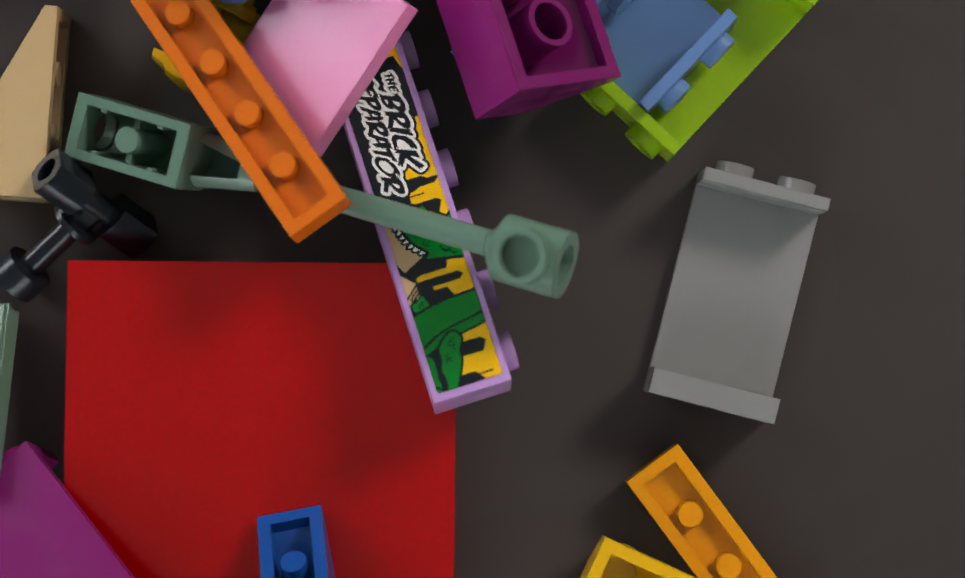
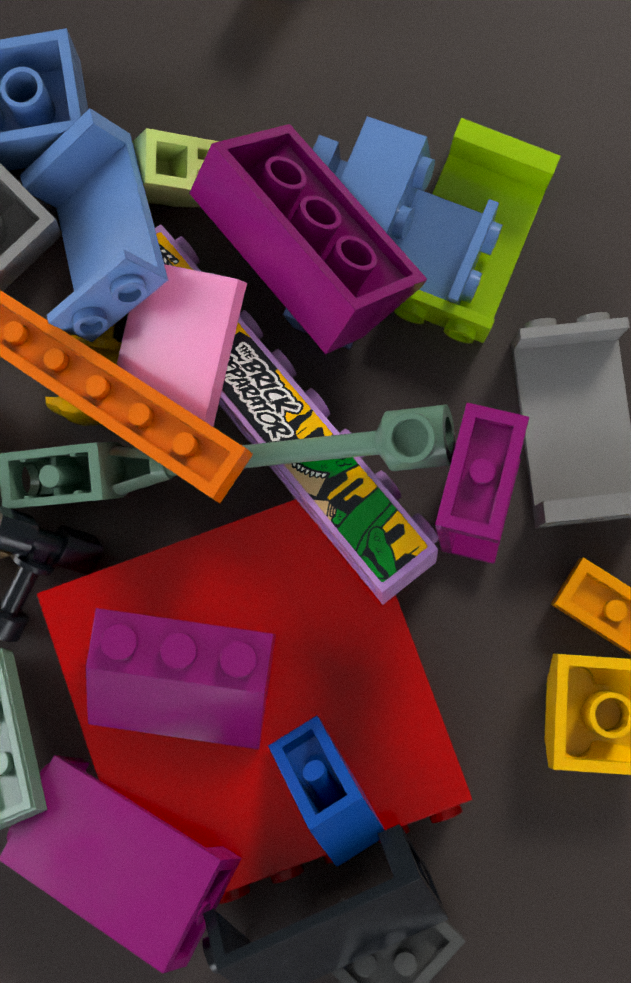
camera: 10 degrees left, 5 degrees down
(188, 409) = (178, 678): none -> magenta slope
(584, 328) = (480, 482): none -> magenta panel

